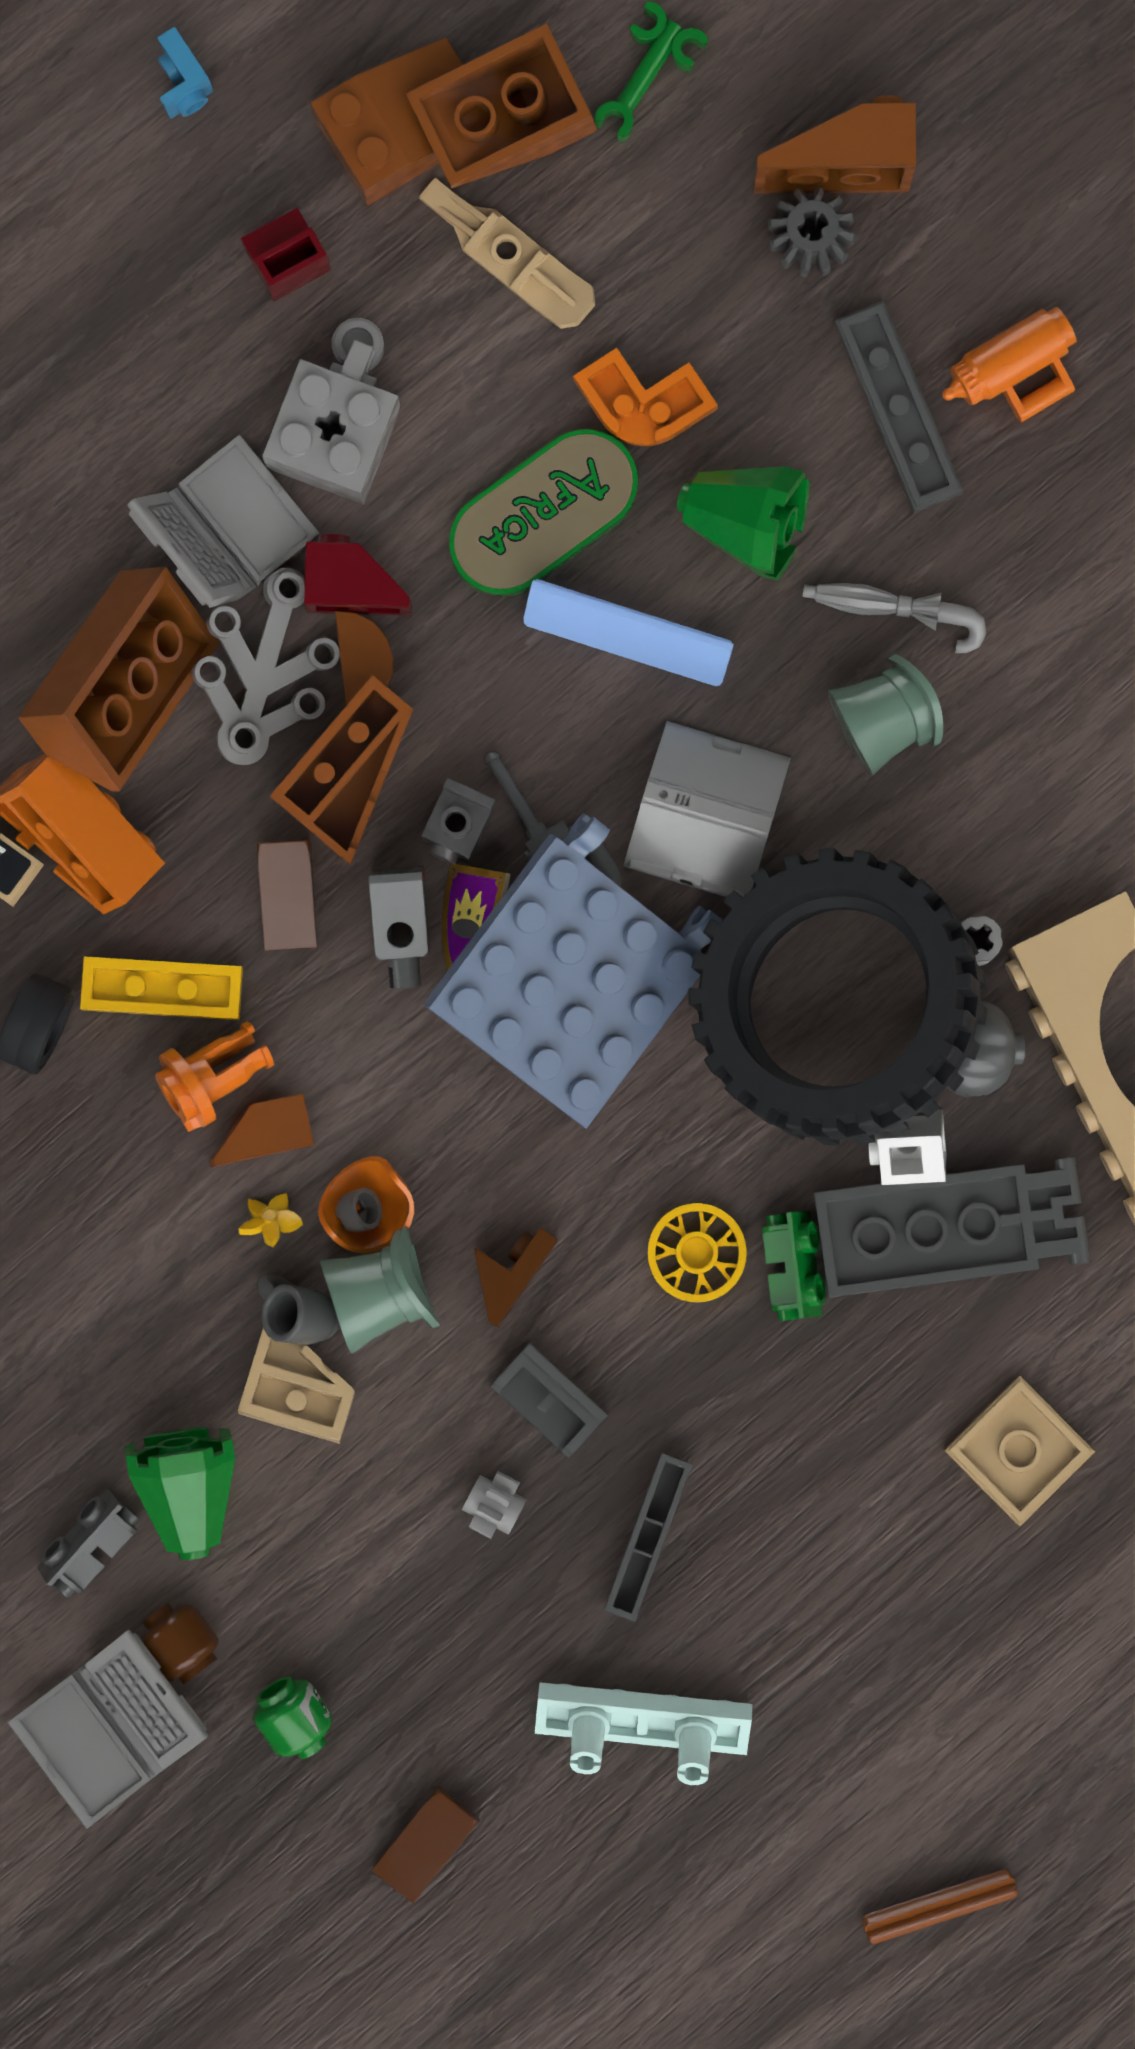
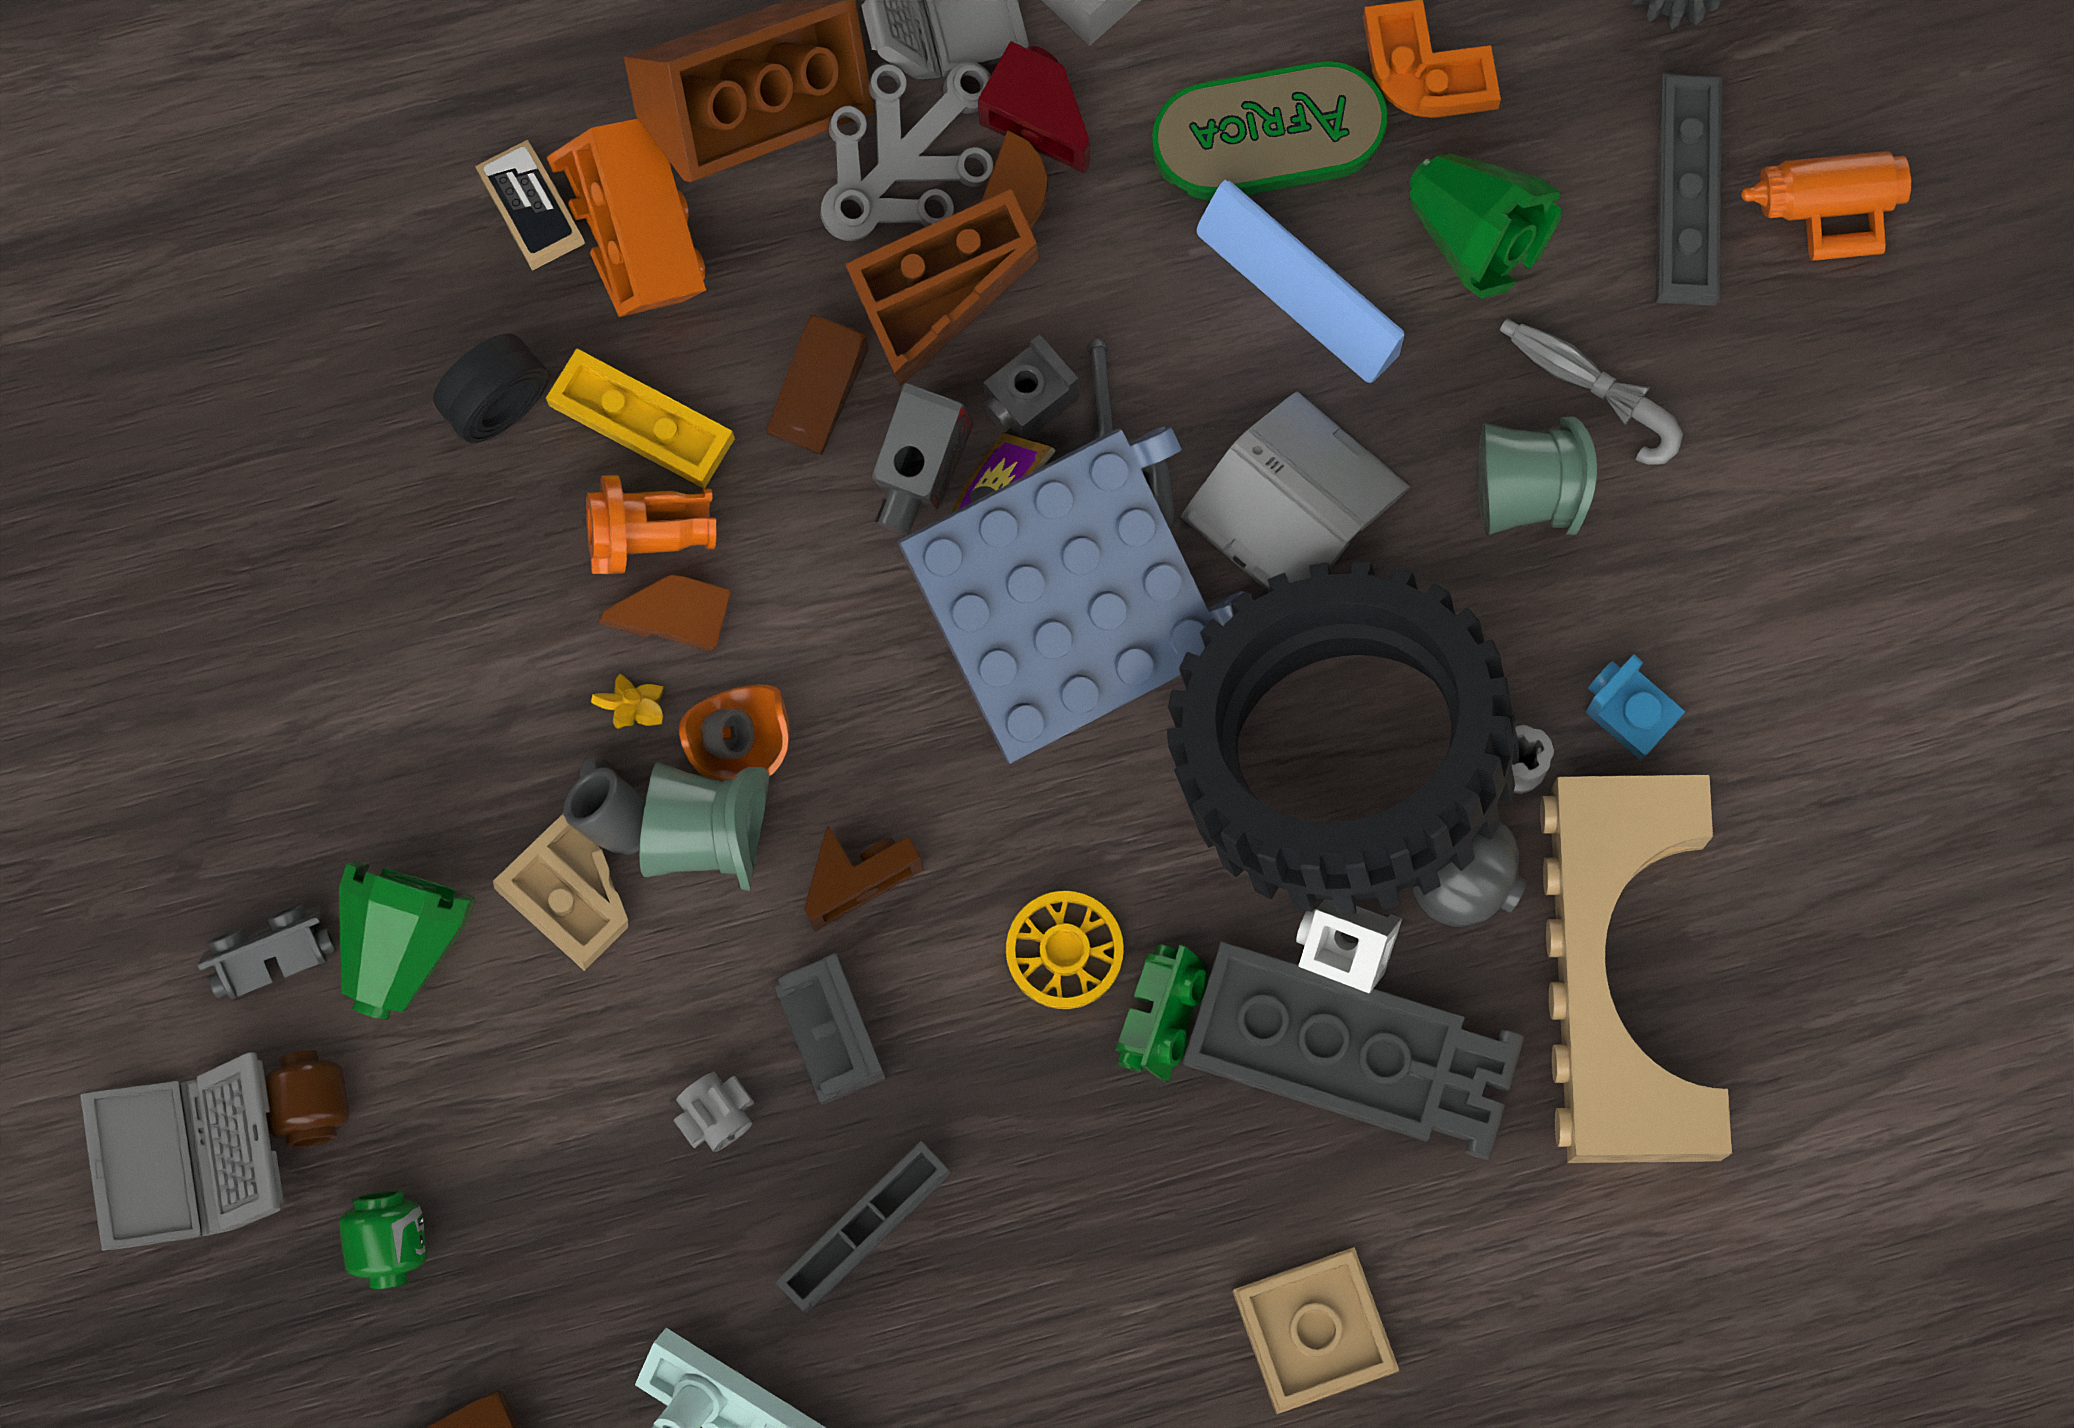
camera: 25 degrees right, 10 degrees down
(1042, 858) = (1632, 707): none -> dark azure bracket

